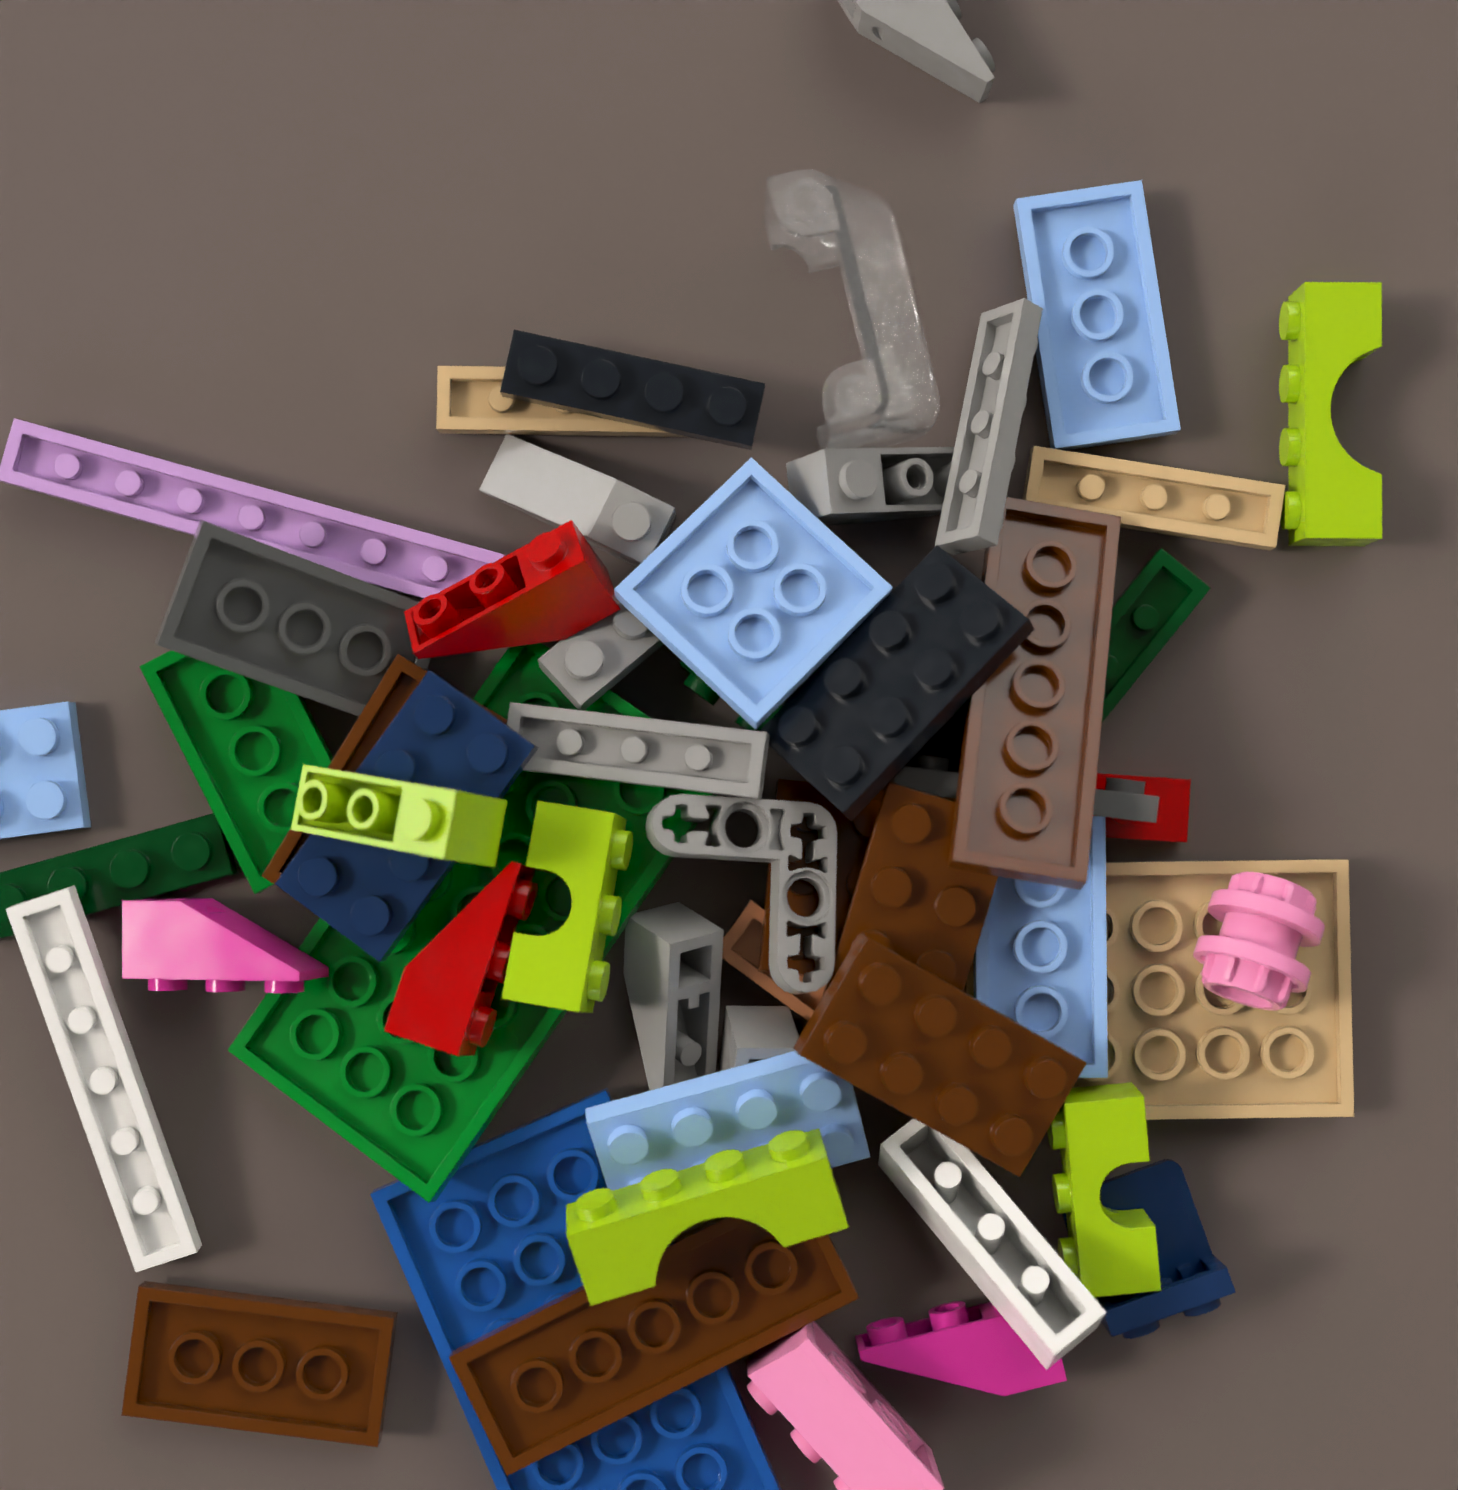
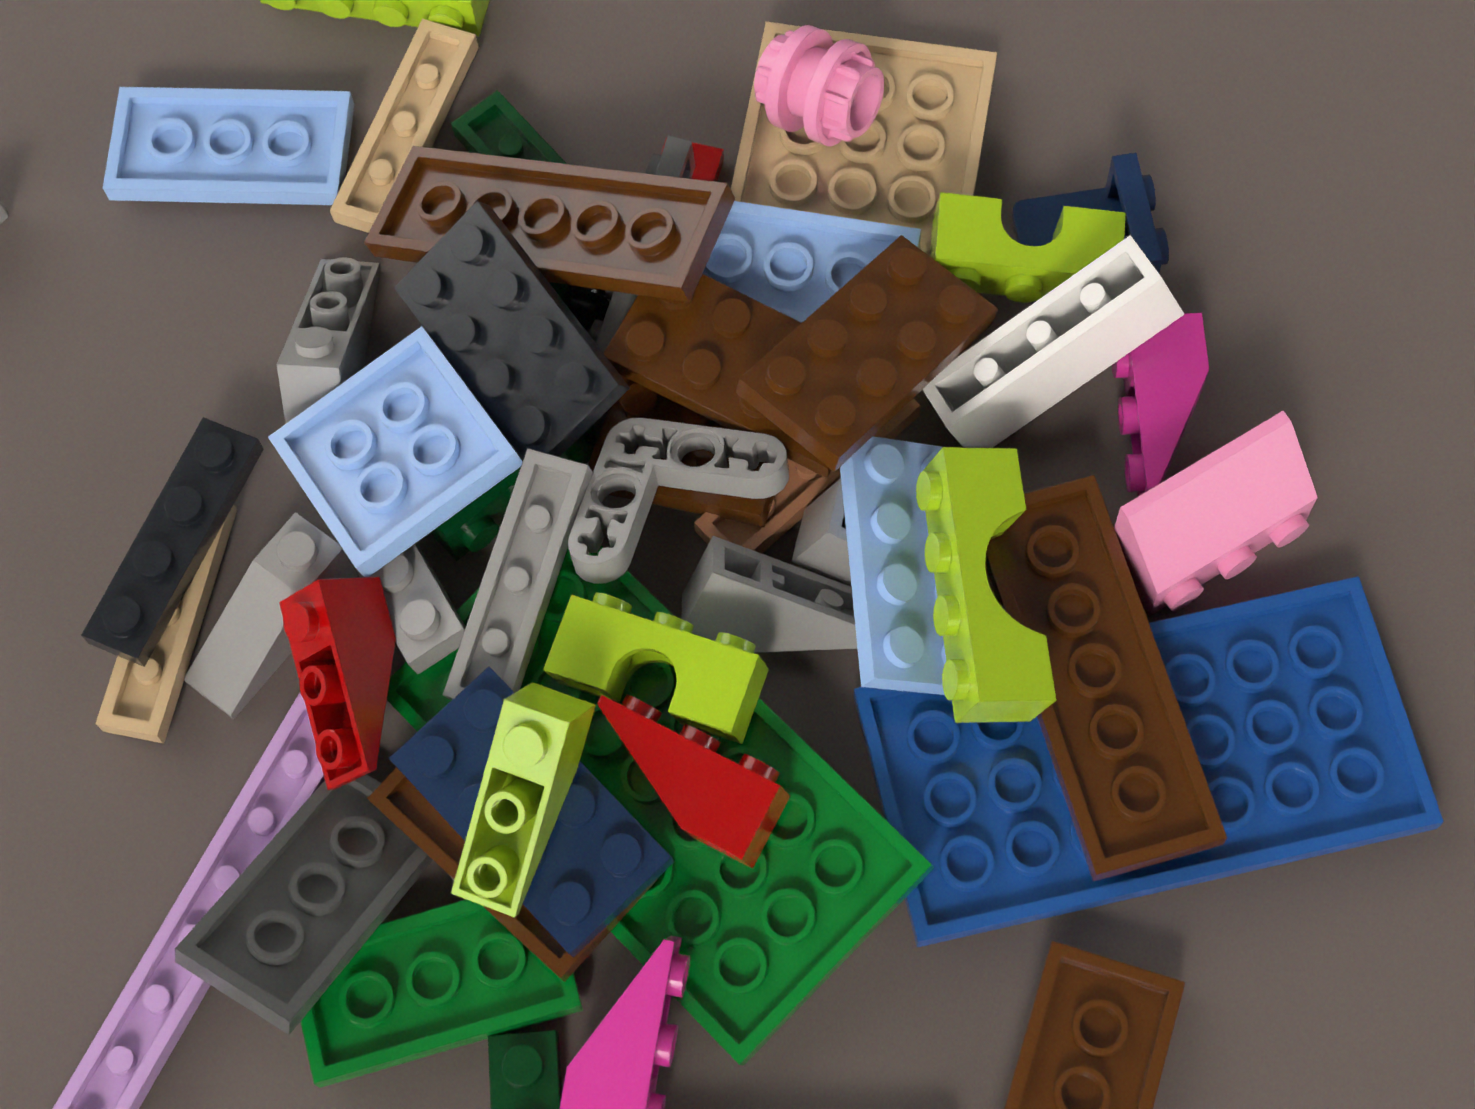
camera: 70 degrees left, 20 degrees down
(894, 388) = (75, 336): clear windscreen -> none
(989, 428) = (301, 236): light grey plate -> none

